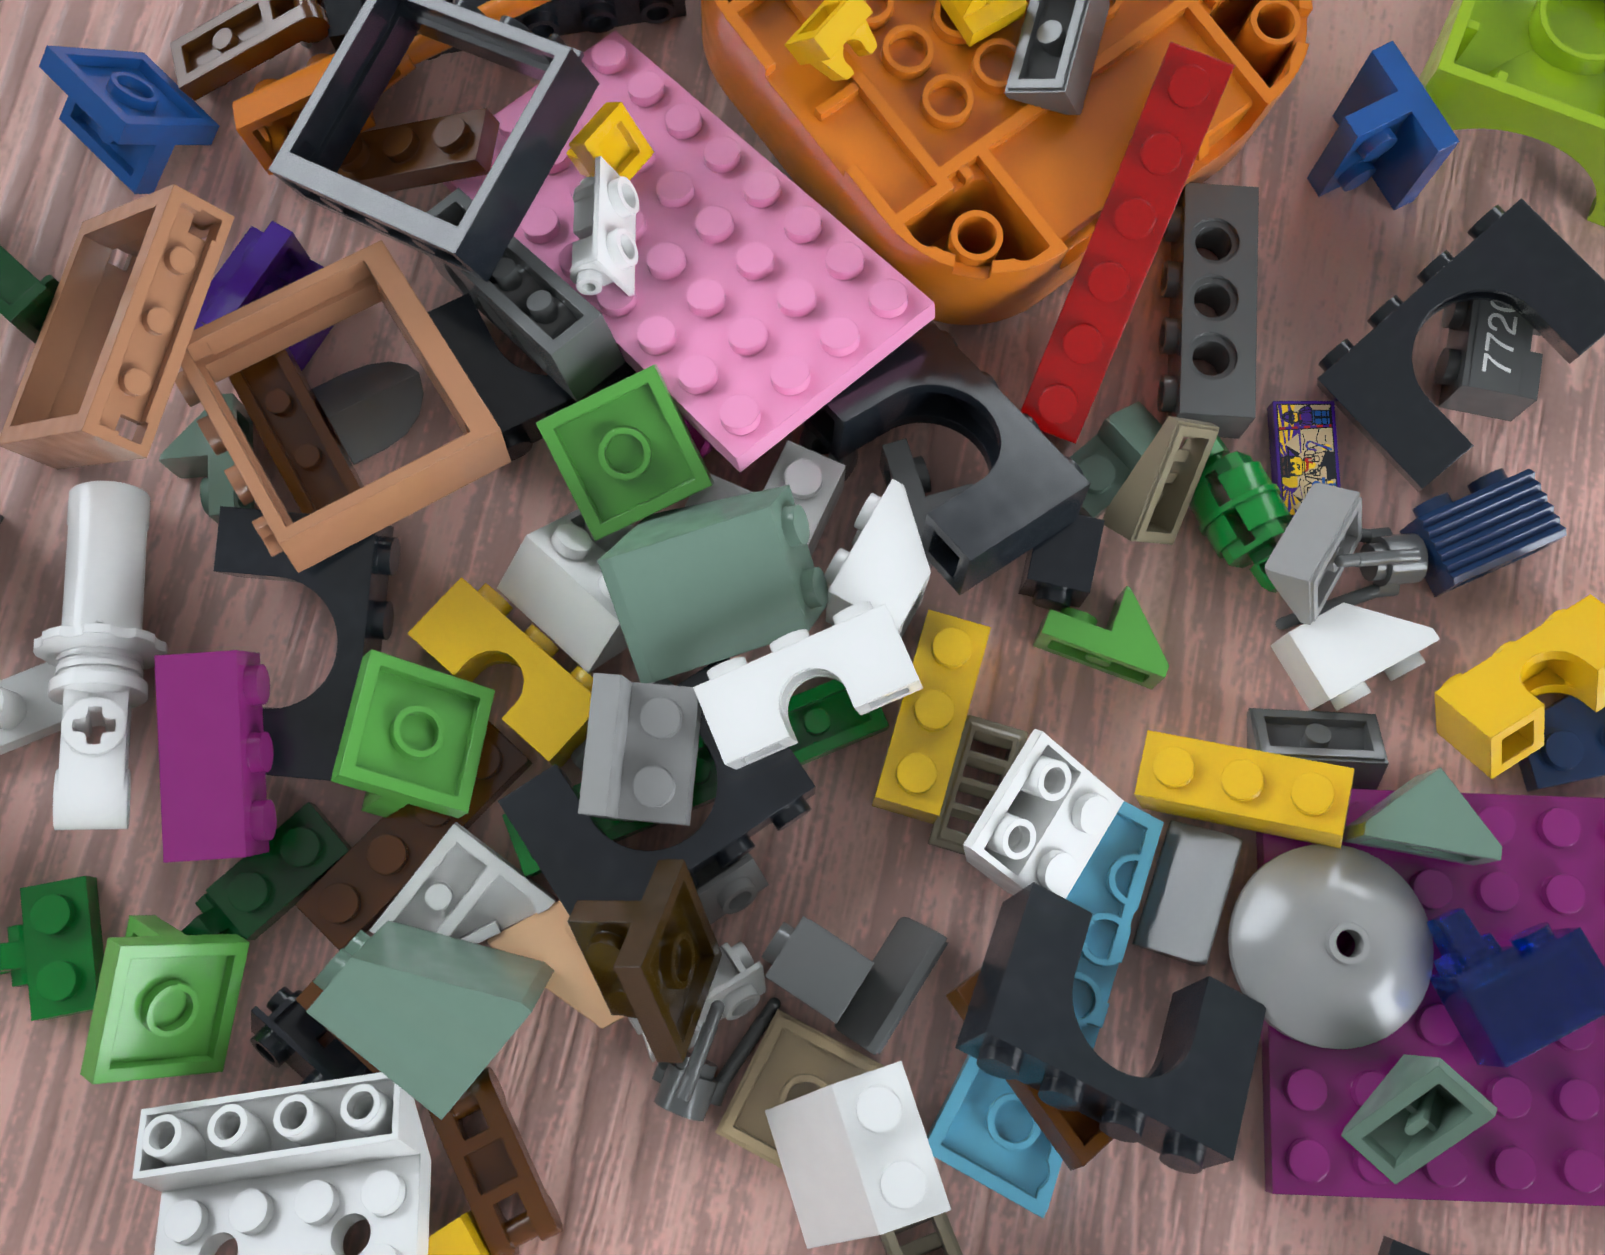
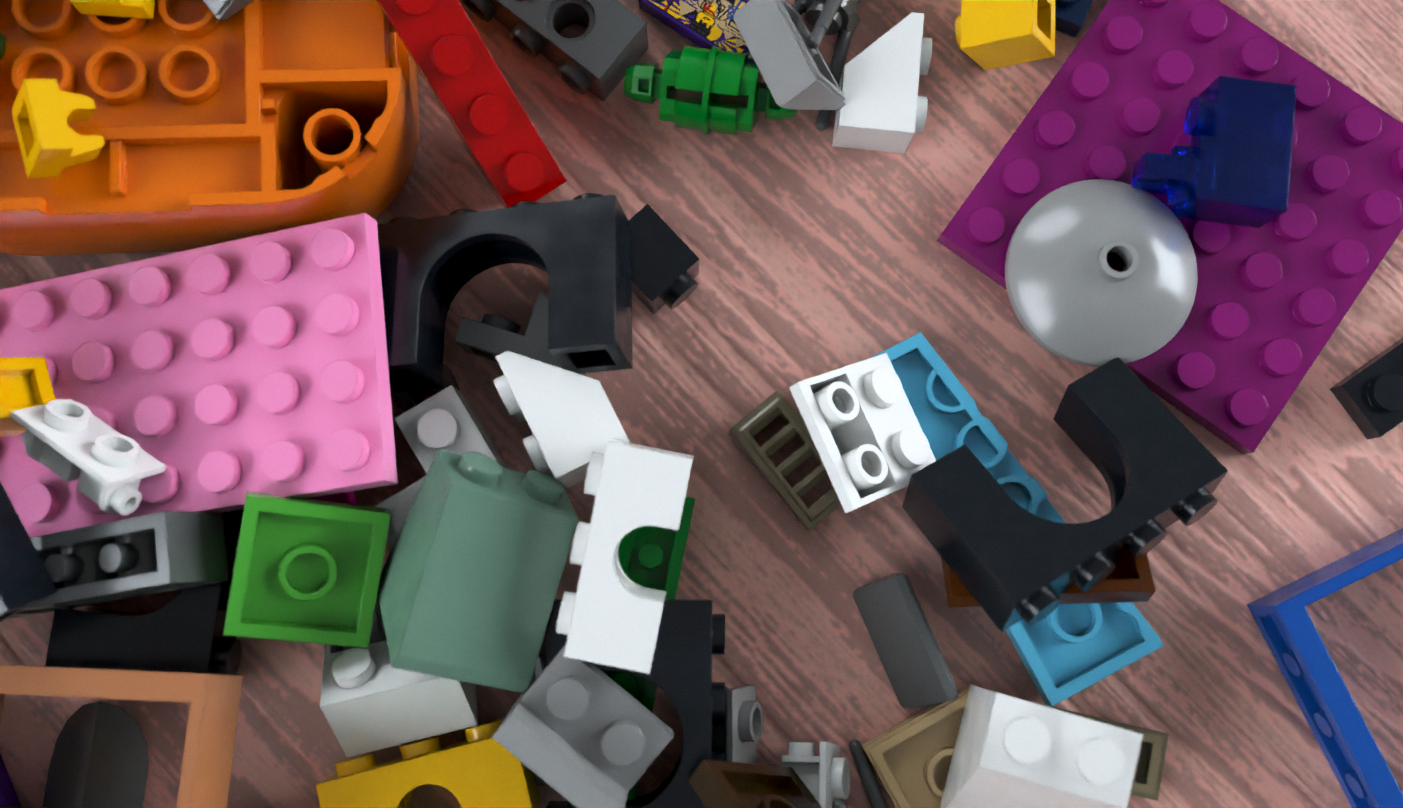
camera: 60 degrees left, 5 degrees up
(816, 967) = (860, 700): dark grey brick -> none
(932, 718) = (723, 467): yellow brick -> none
(1114, 454) = (598, 150): sand green slope -> none
(1121, 649) = (758, 264): bright green slope -> none
(1162, 483) = (649, 135): dark tan slope -> none
(1188, 893) = (986, 351): slope -> none
(1244, 788) = (941, 249): yellow brick -> none
(1323, 737) = (937, 172): dark grey slope -> none
(1416, 1116) = (1274, 303): sand green slope -> none
(1429, 821) = (1054, 127): sand green slope -> none

